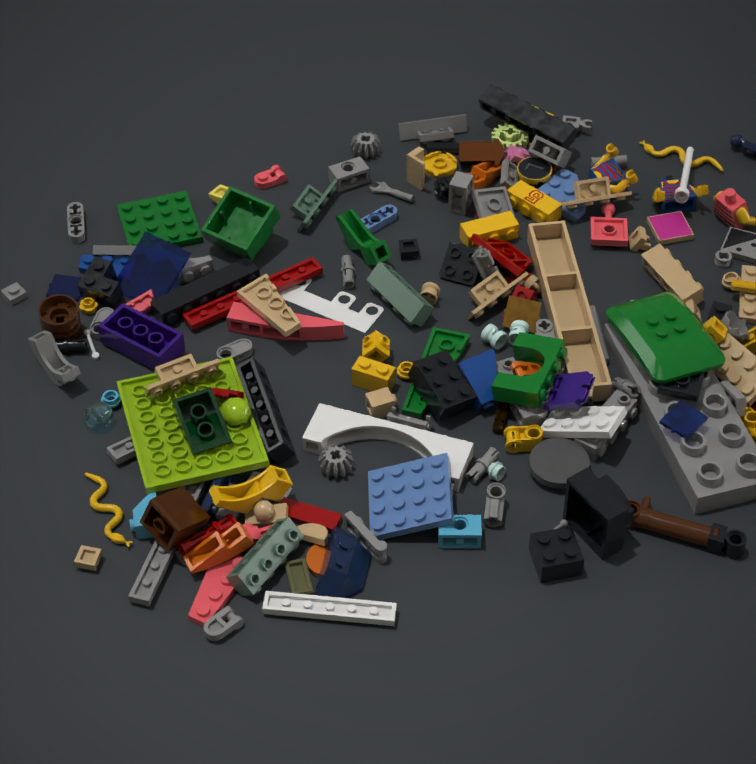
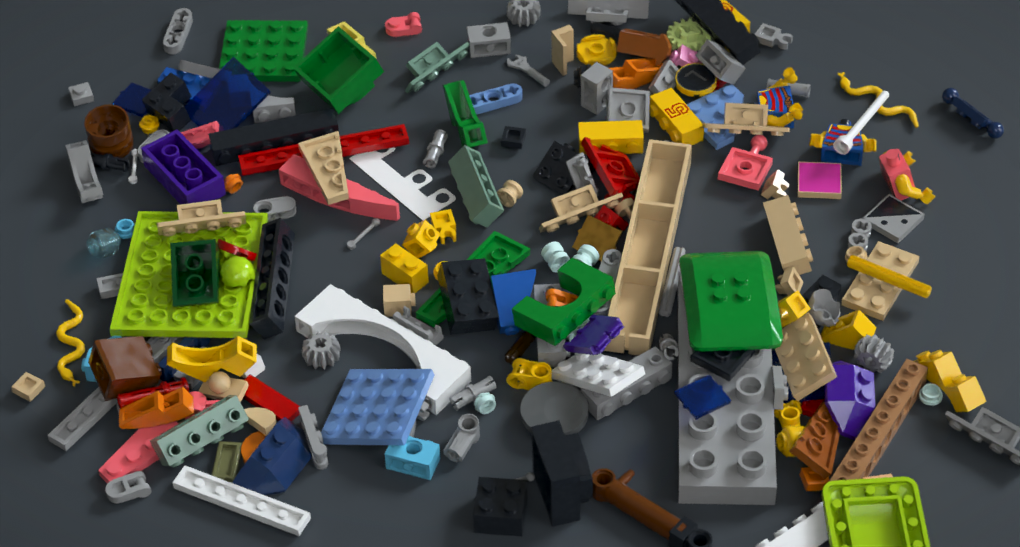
camera: 20 degrees right, 0 degrees up
(189, 338) = (233, 183): none -> orange plate
(314, 367) = (352, 243): none -> light grey hinge
(388, 329) = (444, 223): none -> yellow plate
(725, 266) = (859, 238): none -> light grey bush

